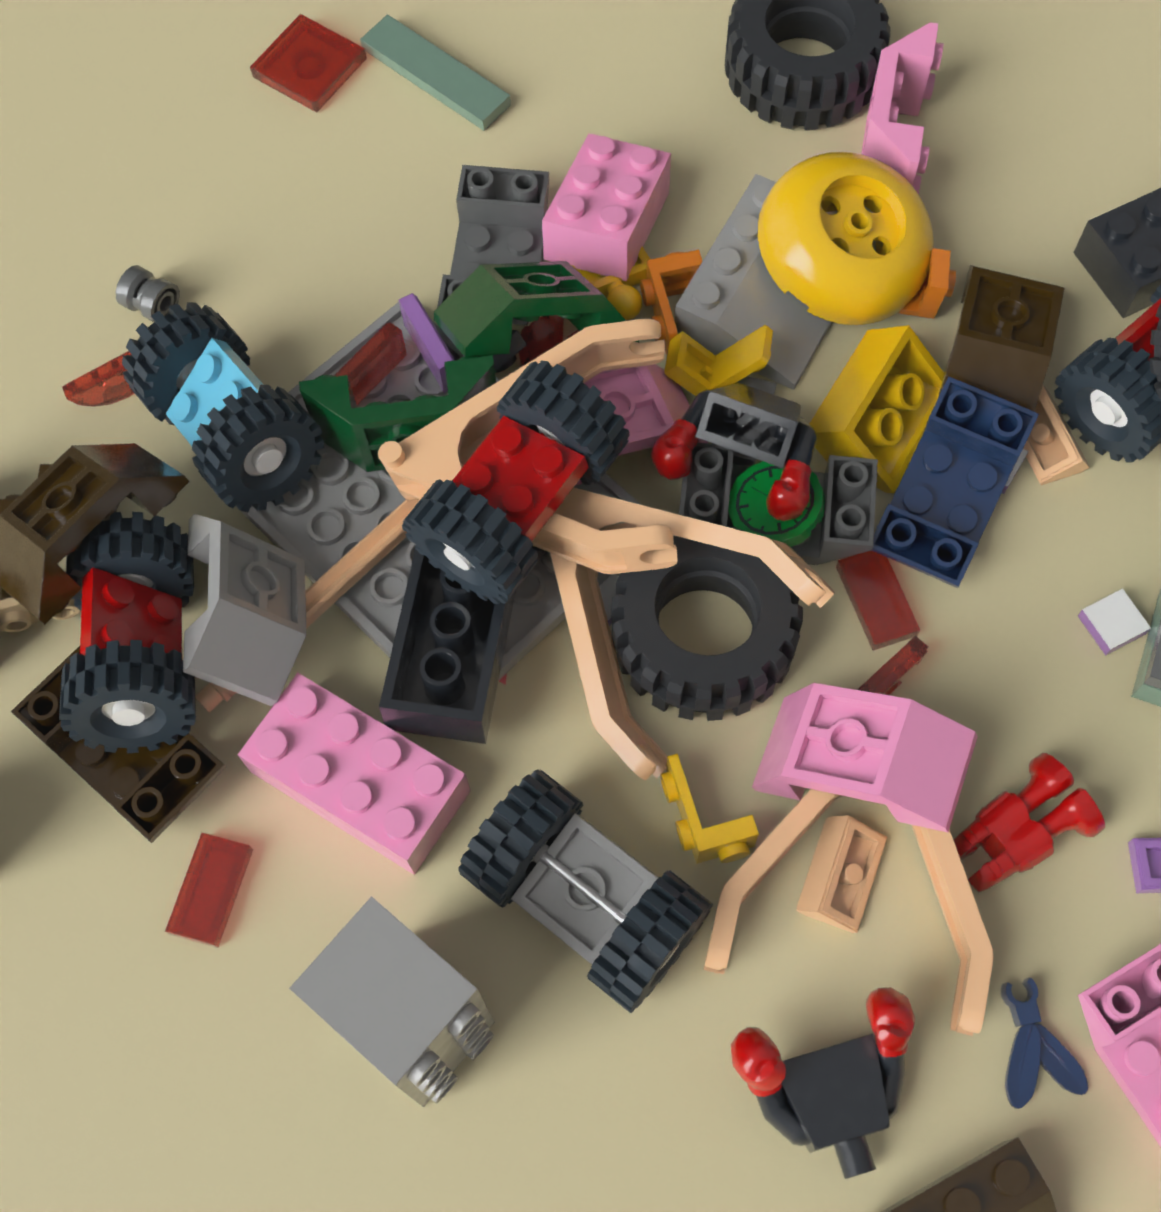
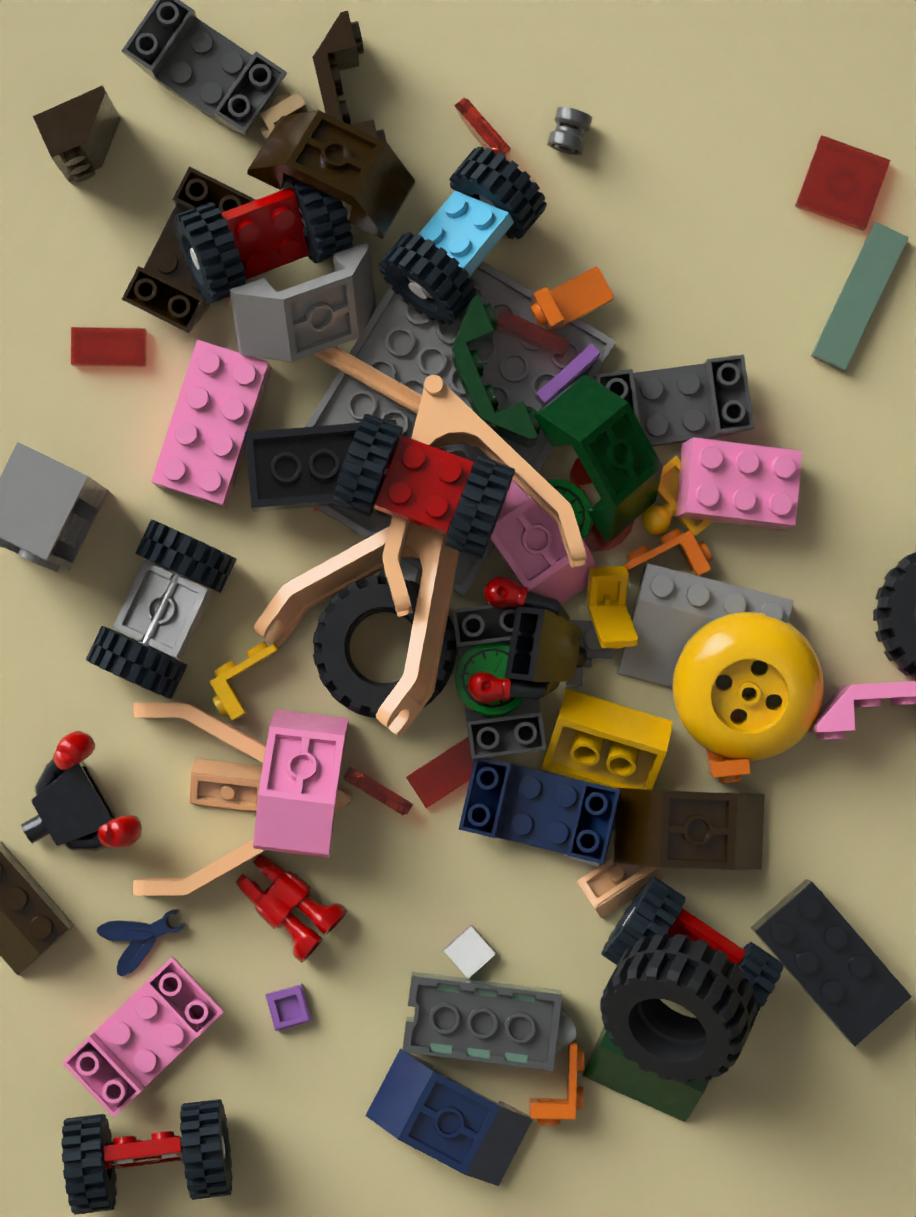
camera: 75 degrees right, 20 degrees up
(340, 322) = (570, 300): none -> orange bracket

